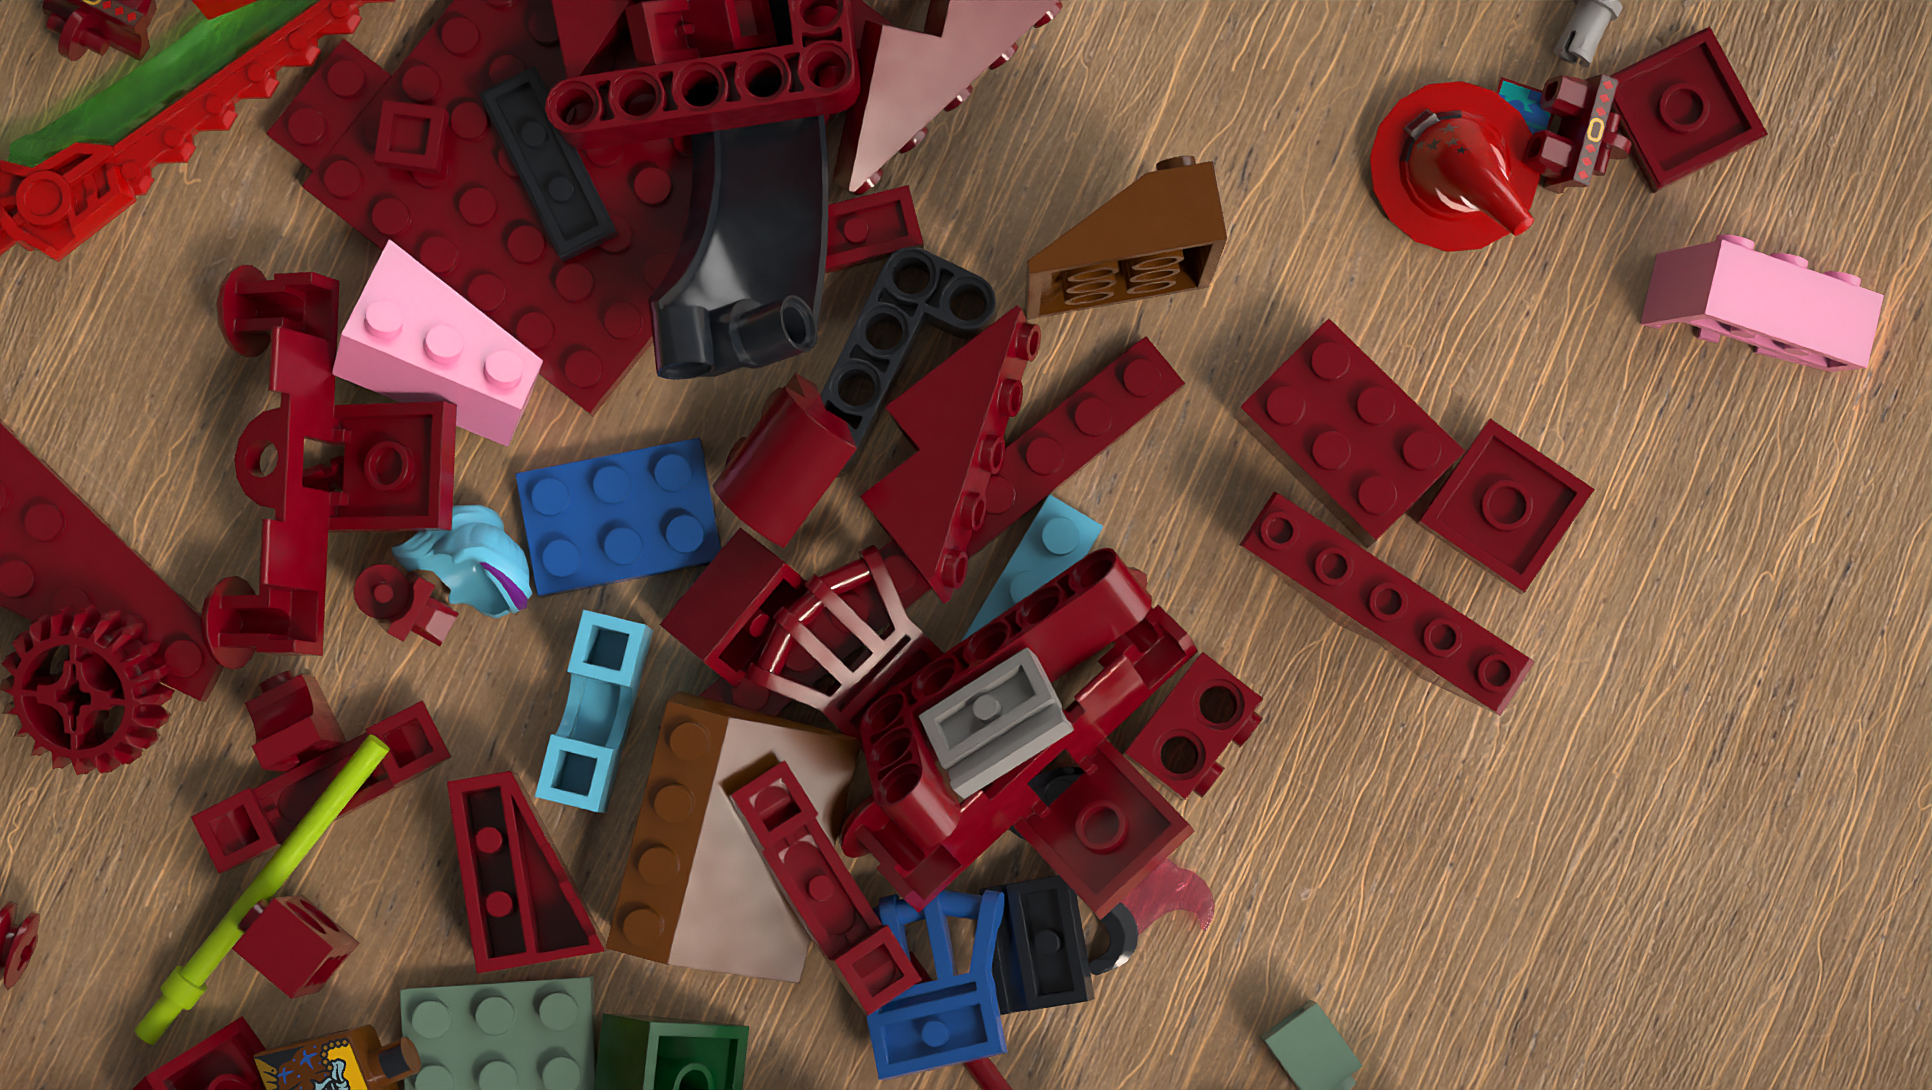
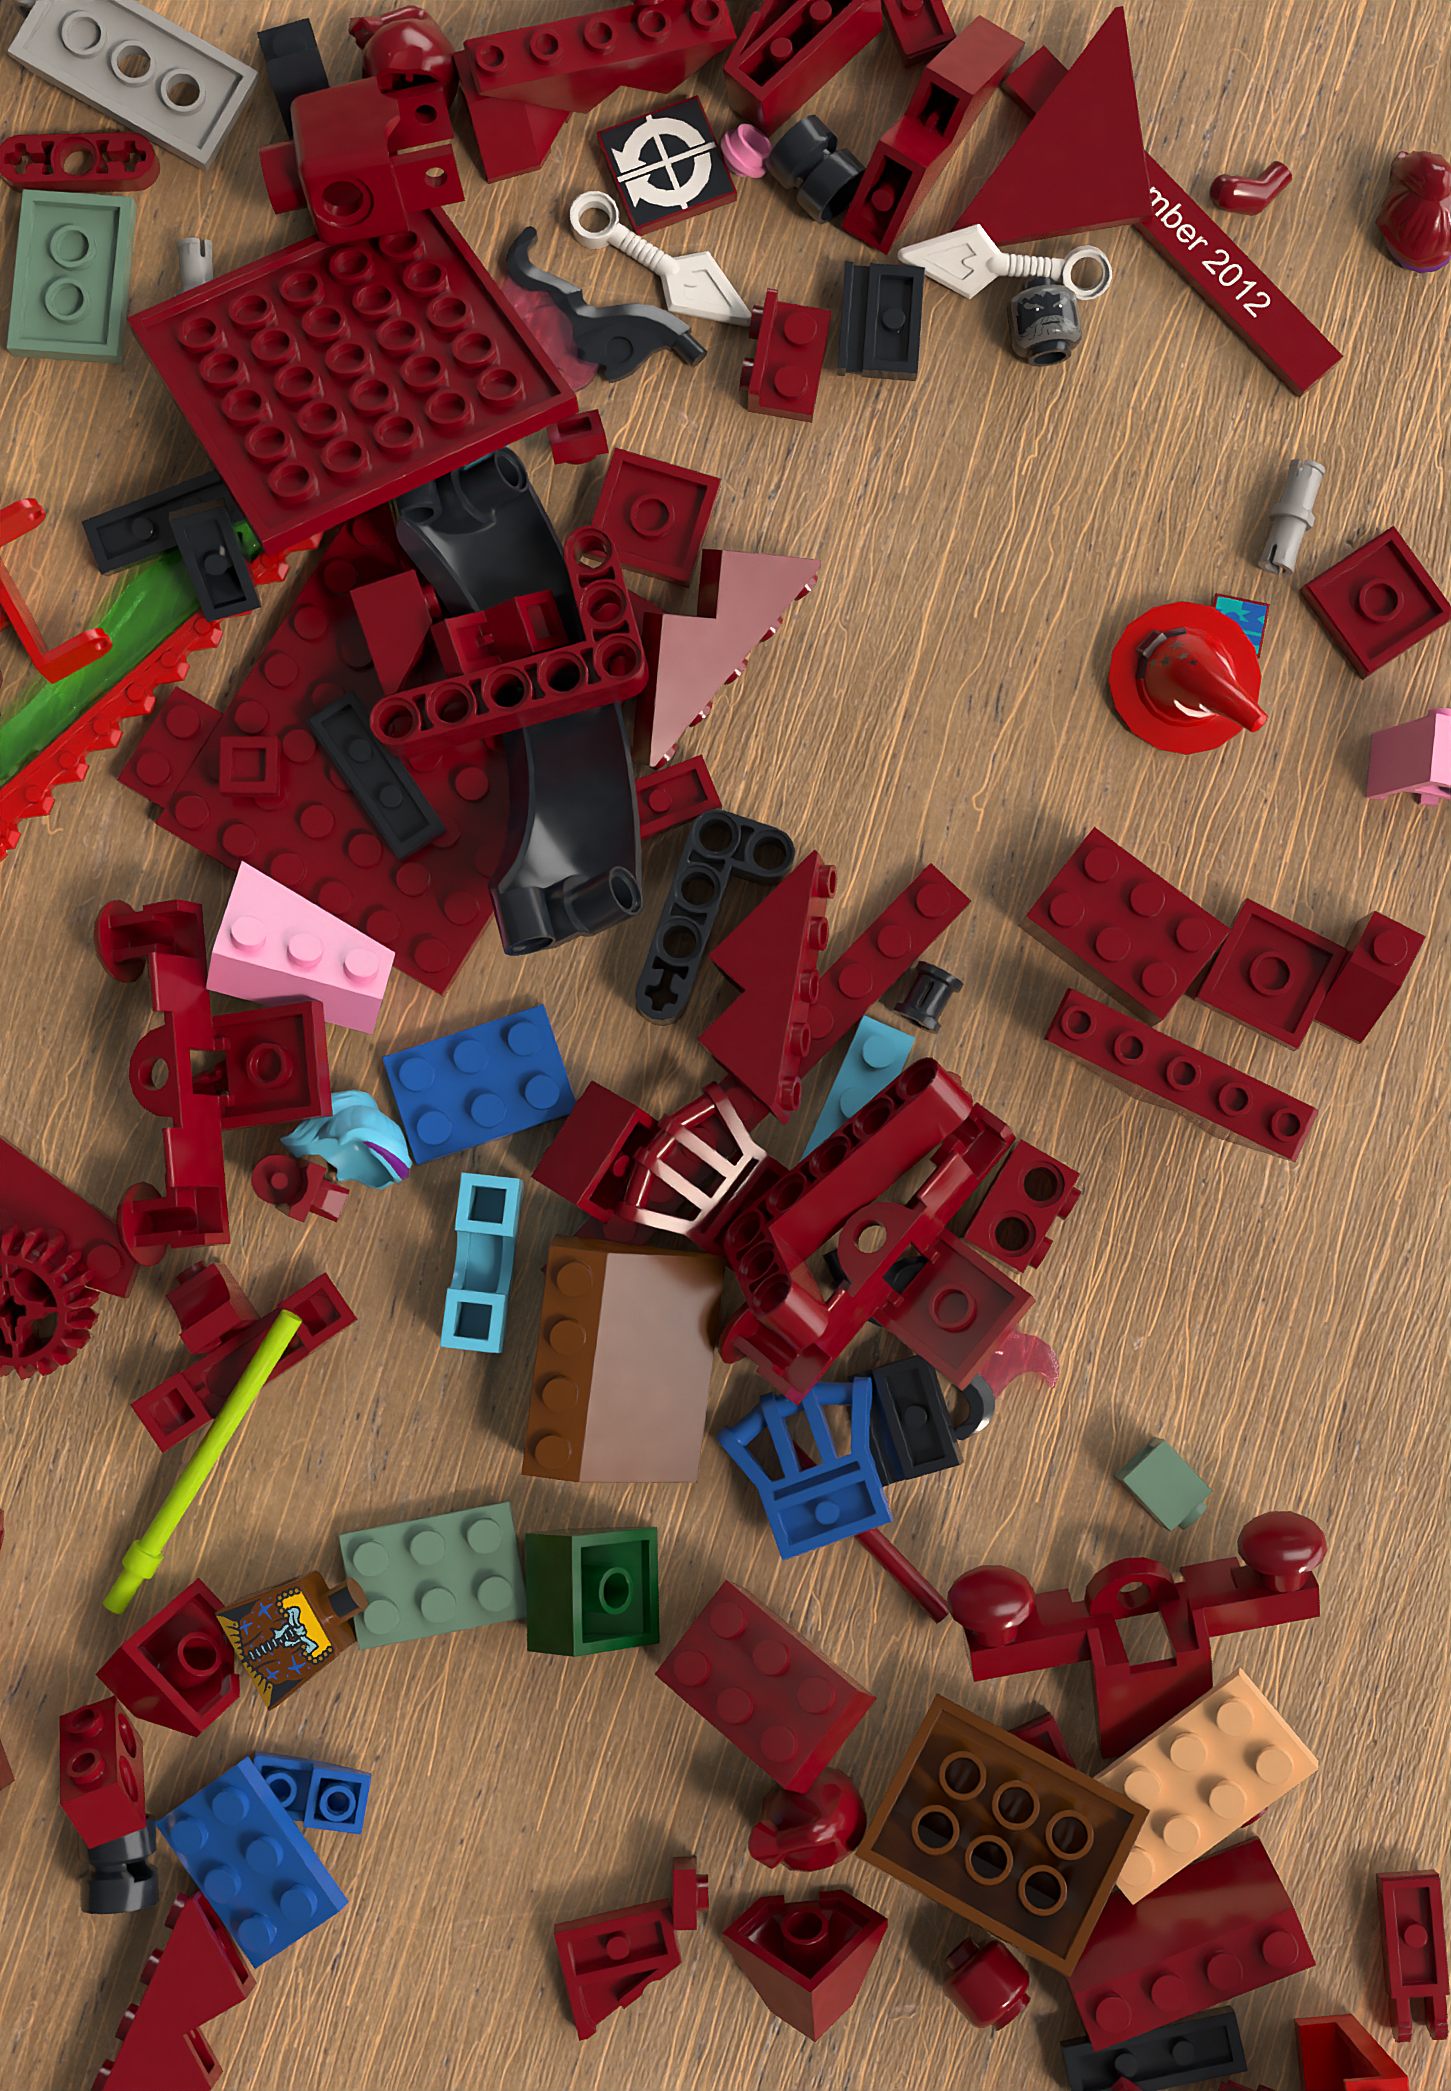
camera: 15 degrees left, 0 degrees up
(293, 944) = (238, 1507): dark red brick -> none
(514, 879) = (431, 1424): dark red wedge -> none
(785, 462) = (626, 1016): dark red brick -> none
(822, 889) = (709, 1396): dark red slope -> none
(995, 723) = (848, 1227): light grey plate -> none
(1123, 483) = (928, 997): none -> black bush
(1139, 245) = (923, 781): reddish brown slope -> none
(1585, 133) = (1296, 634): dark red hips -> none
(1612, 521) = (1369, 975): none -> dark red slope

